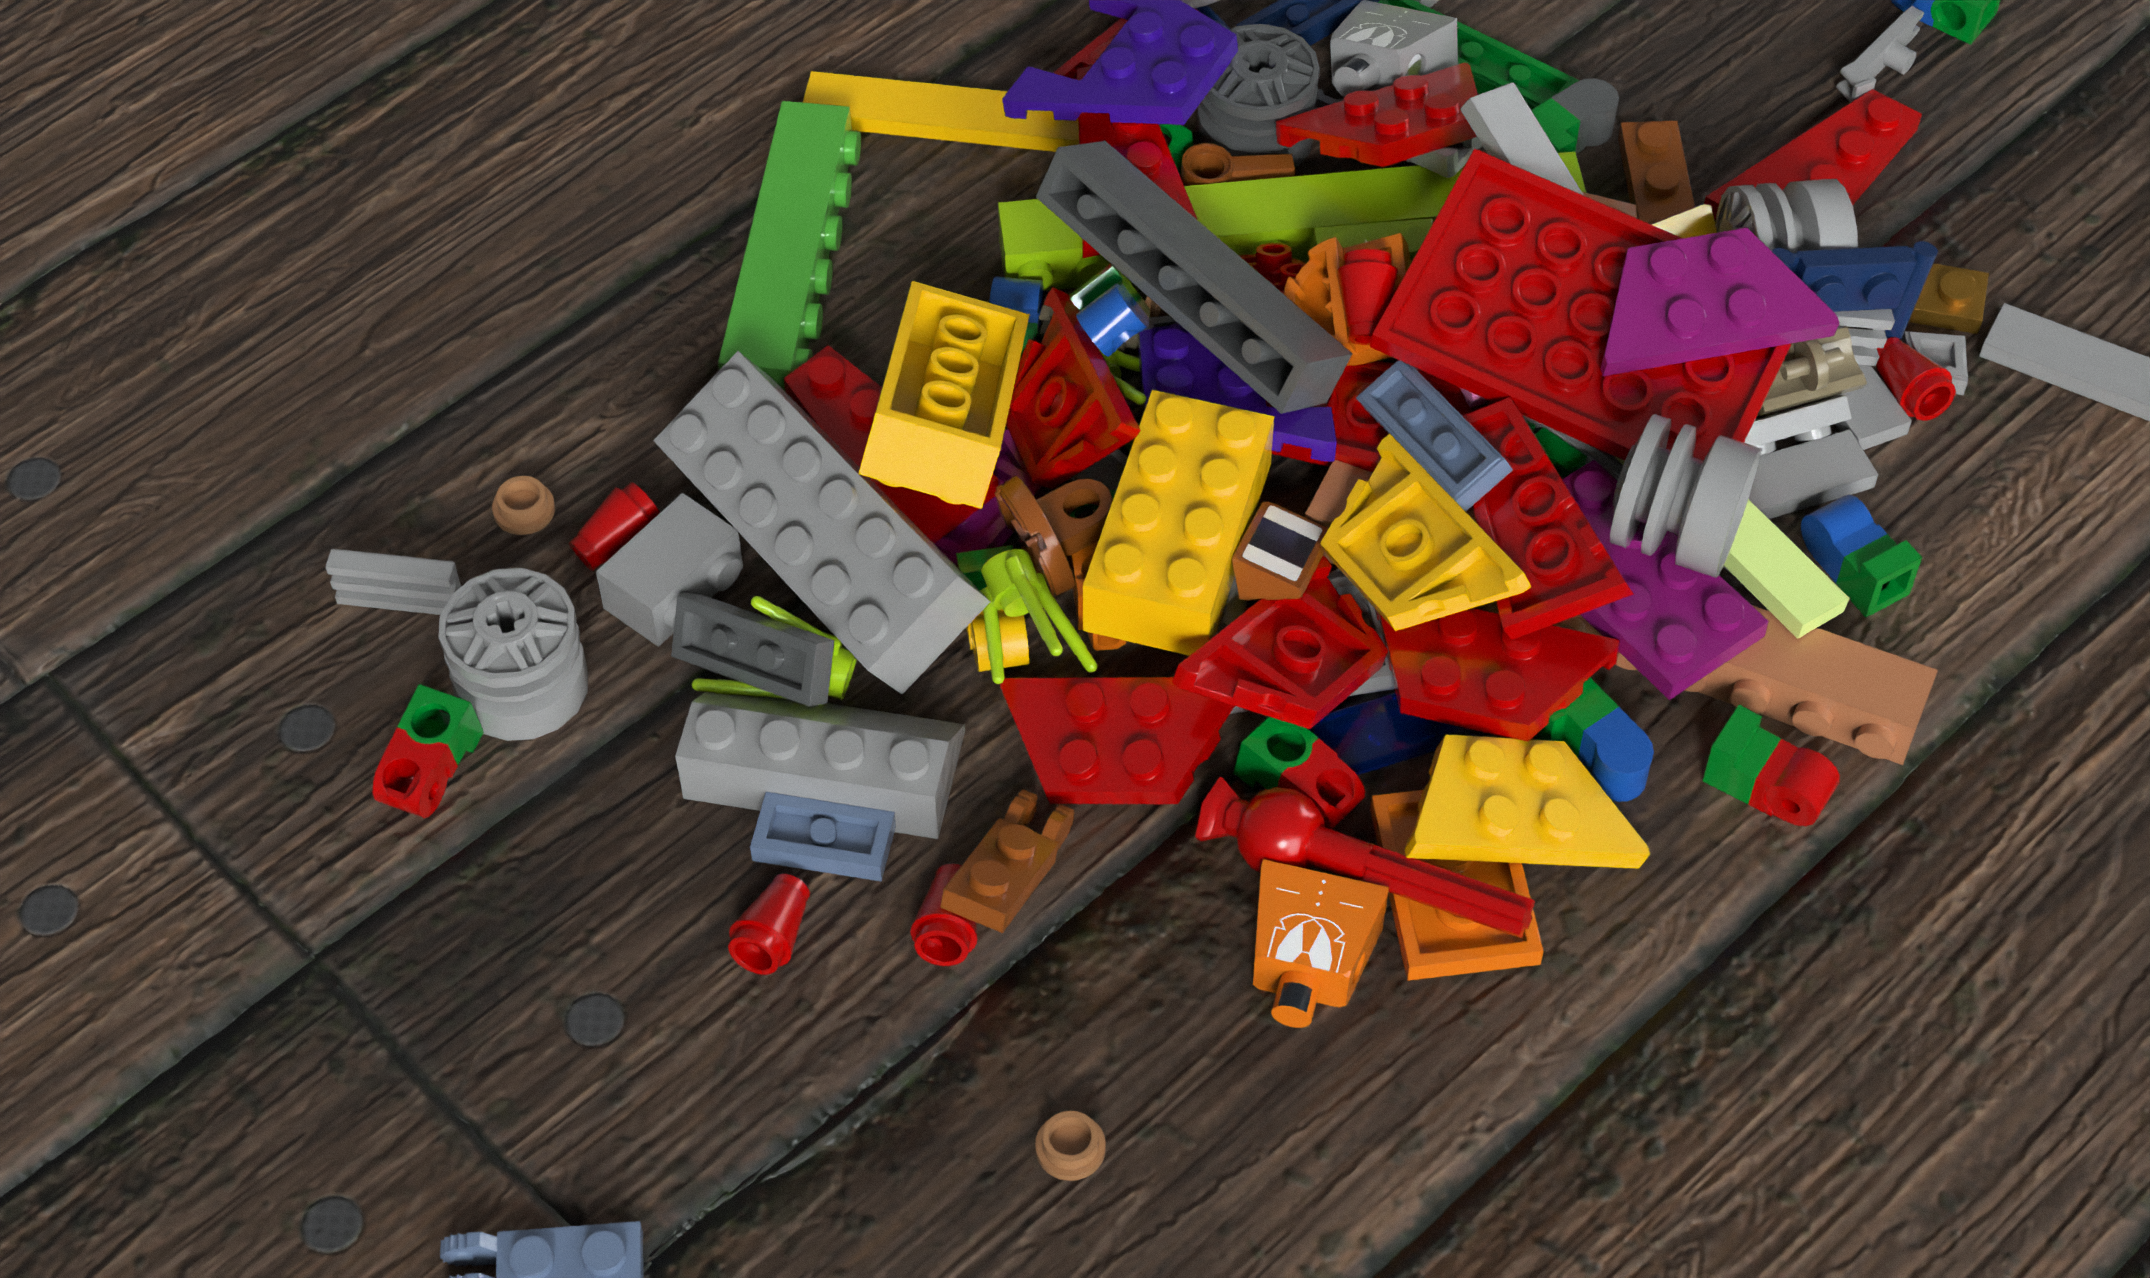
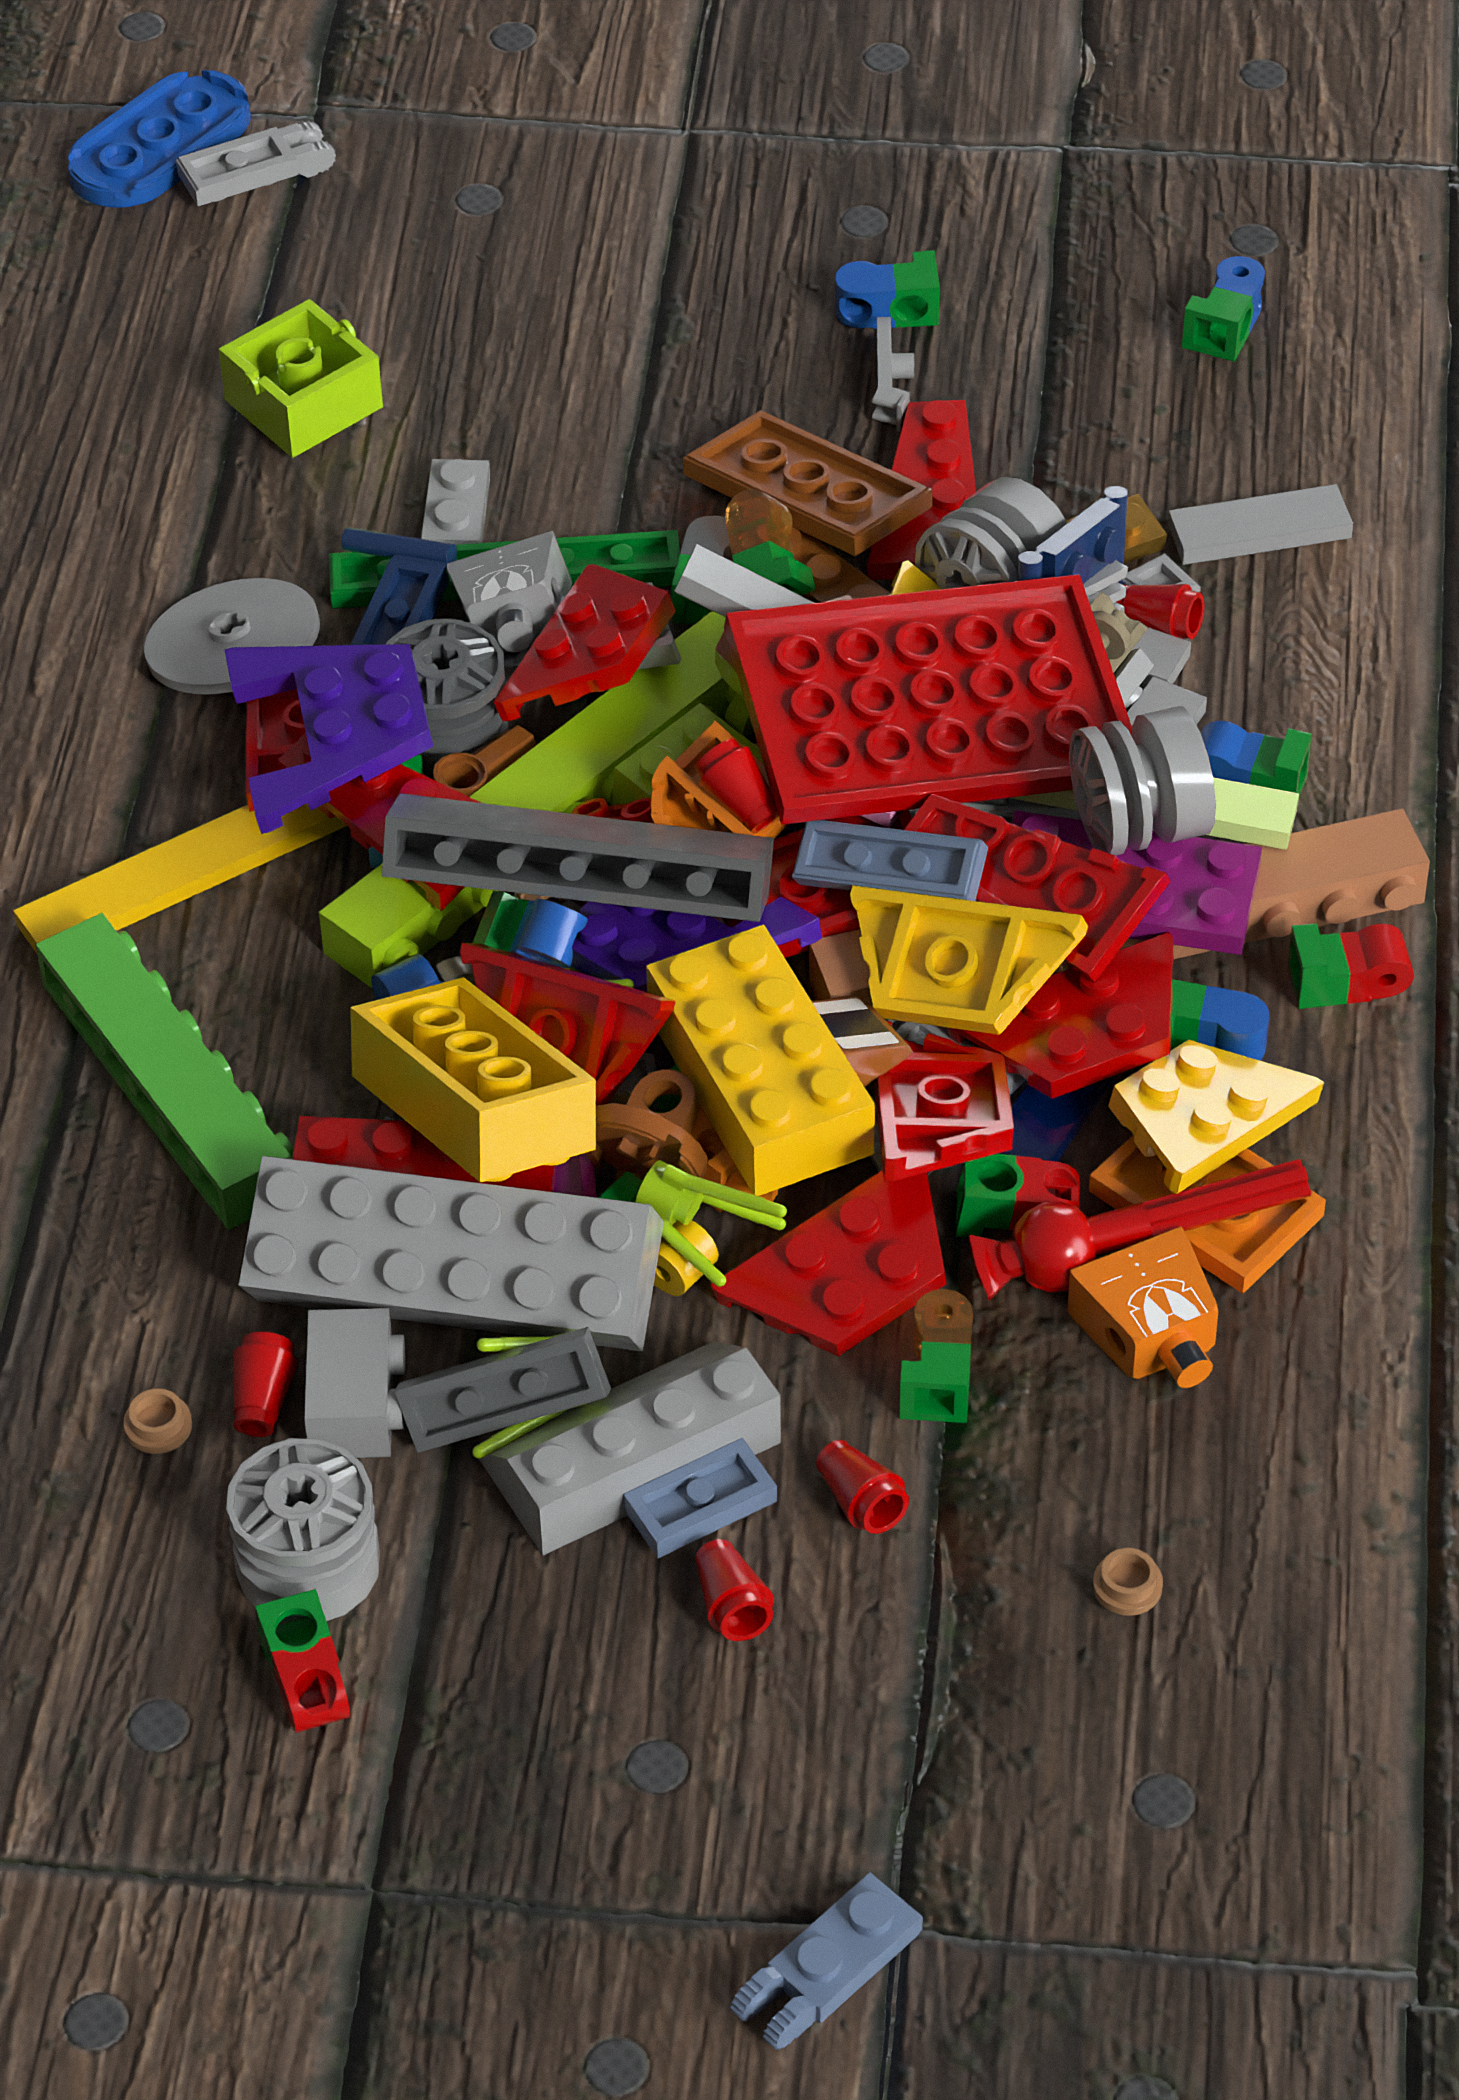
camera: 40 degrees left, 5 degrees down
(392, 581) = (121, 1552): light grey tile -> none
(1007, 865) = (875, 1412): dark orange hinge -> none
(1109, 862) = (939, 1382): none -> green leg
(1621, 133) = (760, 540): none -> leg
(1708, 301) = (1012, 626): magenta wing -> none
(1719, 104) = (821, 484): none -> dark orange tile

